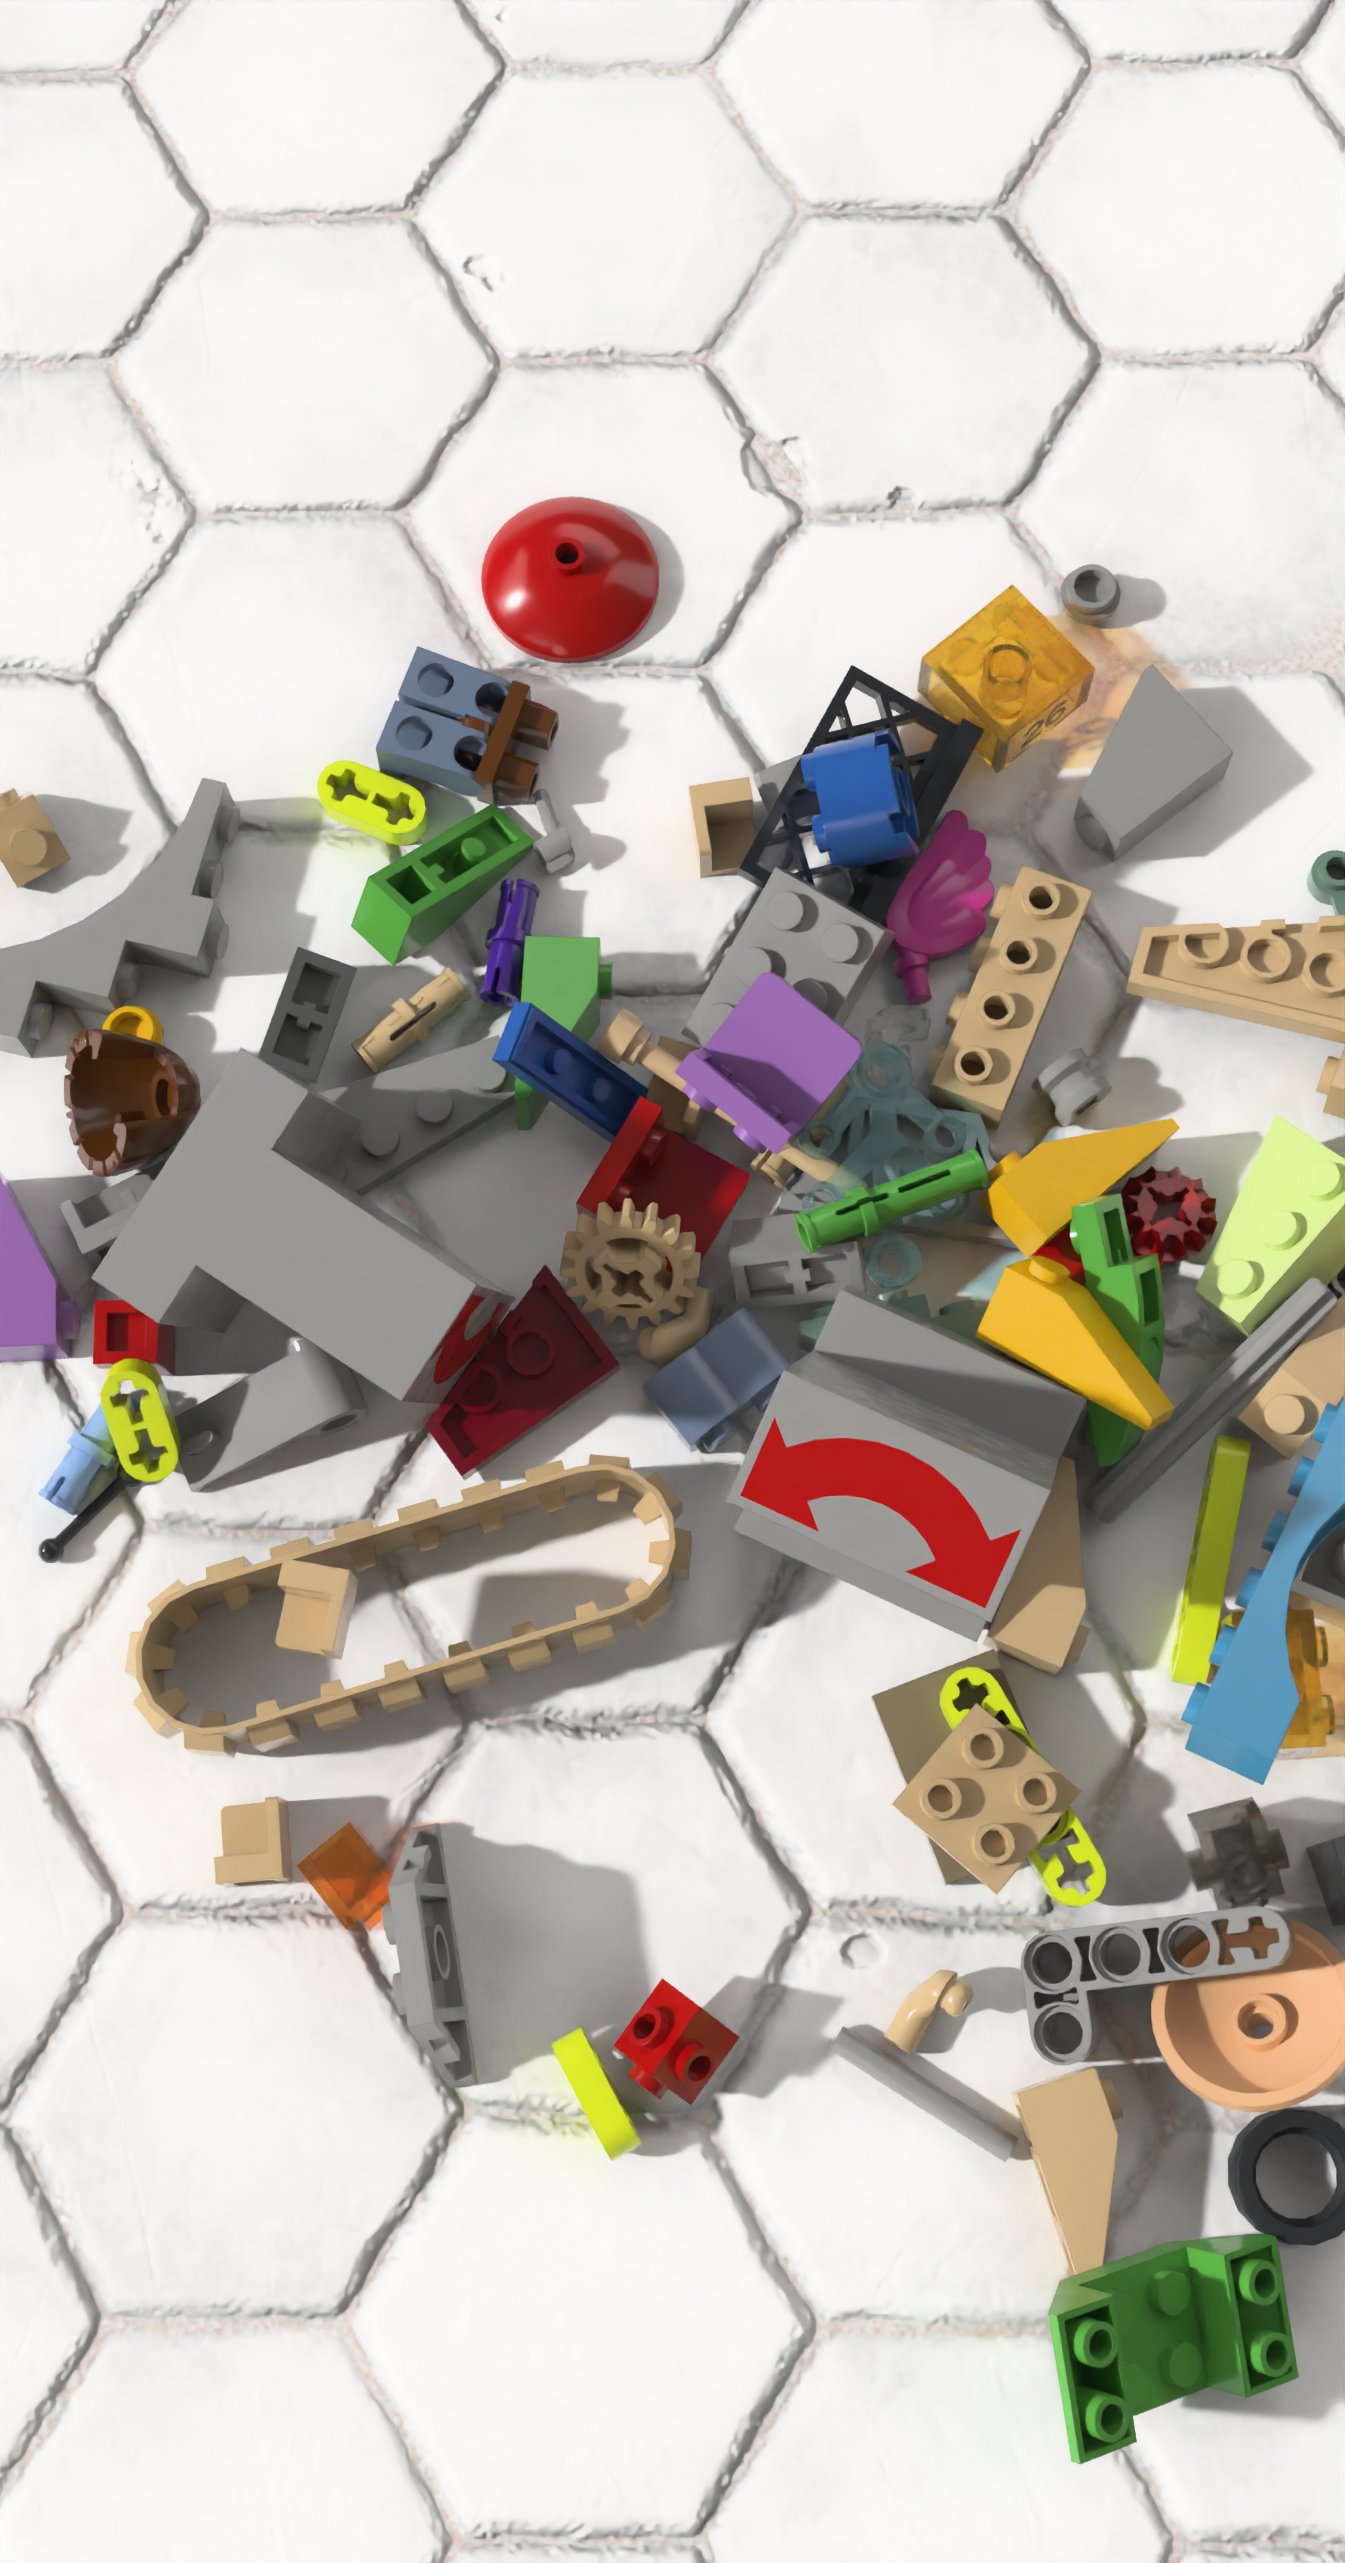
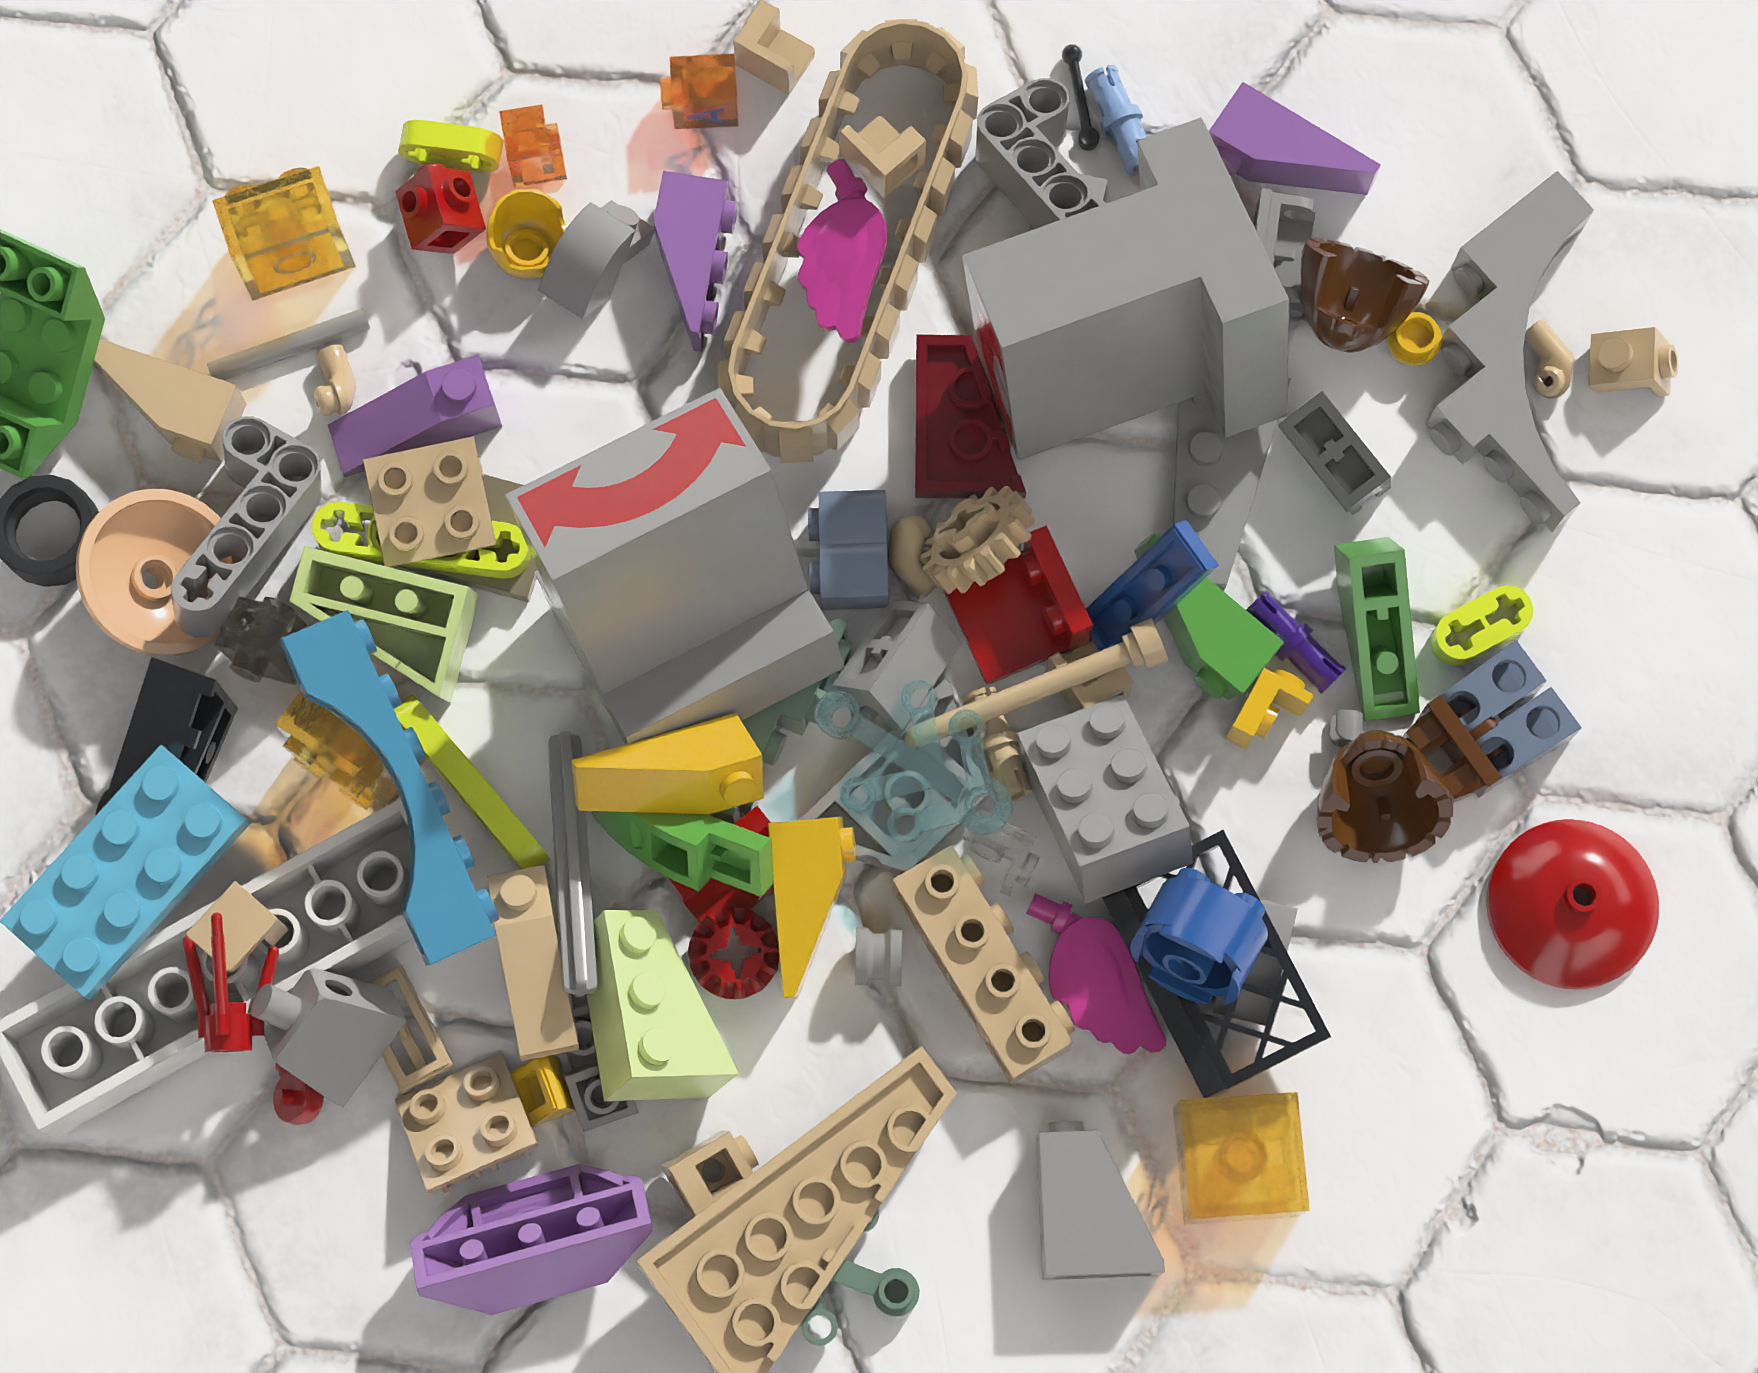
camera: 120 degrees right, 0 degrees up
(71, 901) = (1554, 362): none -> tan arm
(126, 1424) = (1109, 160): neon yellow beam -> none
(210, 1444) = (1020, 155): none -> light grey beam
(428, 1956) = (618, 98): light grey wing -> none
(444, 993) = (1283, 532): tan pin -> none
(450, 1573) = (842, 255): none -> dark pink animal
(520, 1770) = (689, 232): none -> medium lavender slope
(537, 2005) = (532, 146): none -> clear orange brick
(601, 768) = (1382, 800): none -> reddish brown hair
(604, 919) = (1258, 713): none -> yellow bracket
(608, 1845) = (592, 255): none -> light grey brick
(637, 1932) = (524, 232): none -> yellow hair
(722, 824) = (1275, 857): tan panel -> none
(770, 1064) = (1041, 713): medium lavender bracket -> none
(823, 2179) = (283, 232): none -> clear yellow brick
(867, 1209) = (895, 671): bright green pin -> none
(906, 1898) = (422, 412): none -> medium lavender slope
(1047, 1591) = (537, 659): tan slope -> none
(1090, 594) = (1268, 1291): light grey plate -> none
(1117, 1746) = (413, 618): none -> yellowish green wedge

